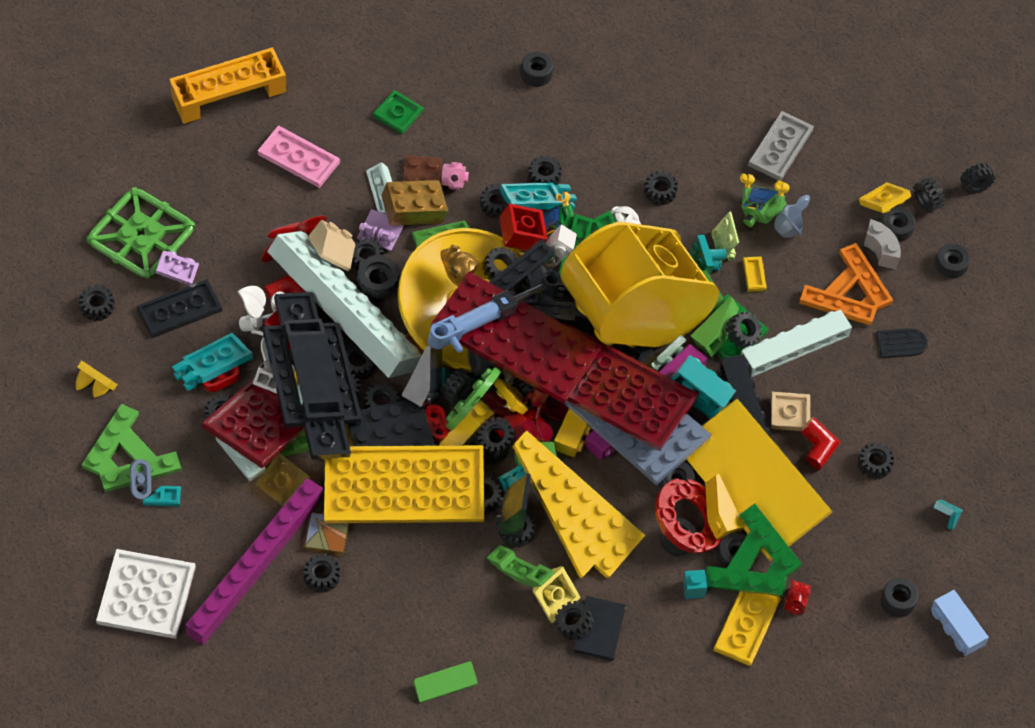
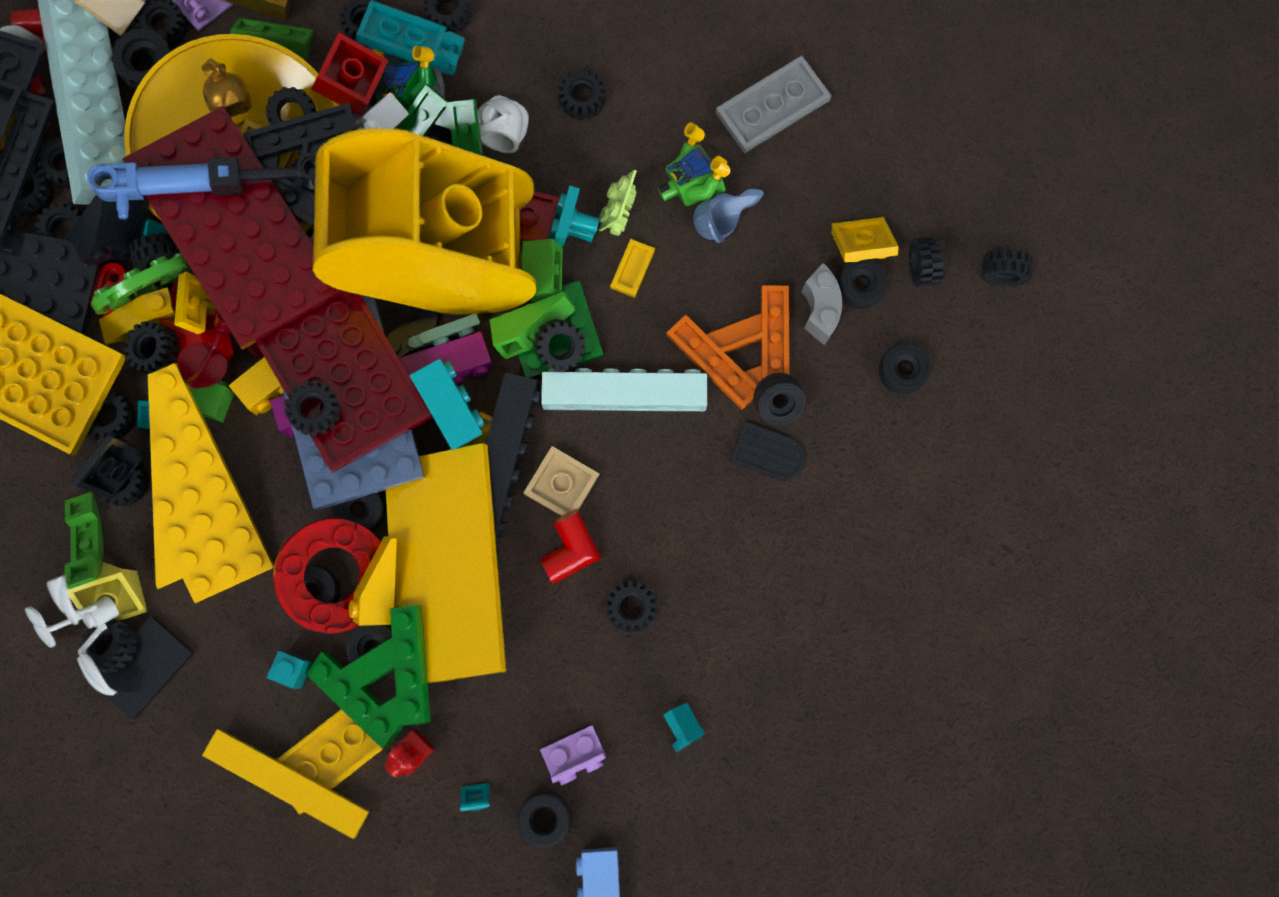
camera: 30 degrees right, 20 degrees up
(553, 581) = (93, 616): none -> white plant
(630, 405) = (300, 396): none -> black tyre
(733, 647) = (286, 783): none -> yellow tile
(851, 606) = (475, 797): none -> teal slope
(881, 306) = (779, 413): none -> black tyre
(893, 556) = (573, 754): none -> lavender bracket

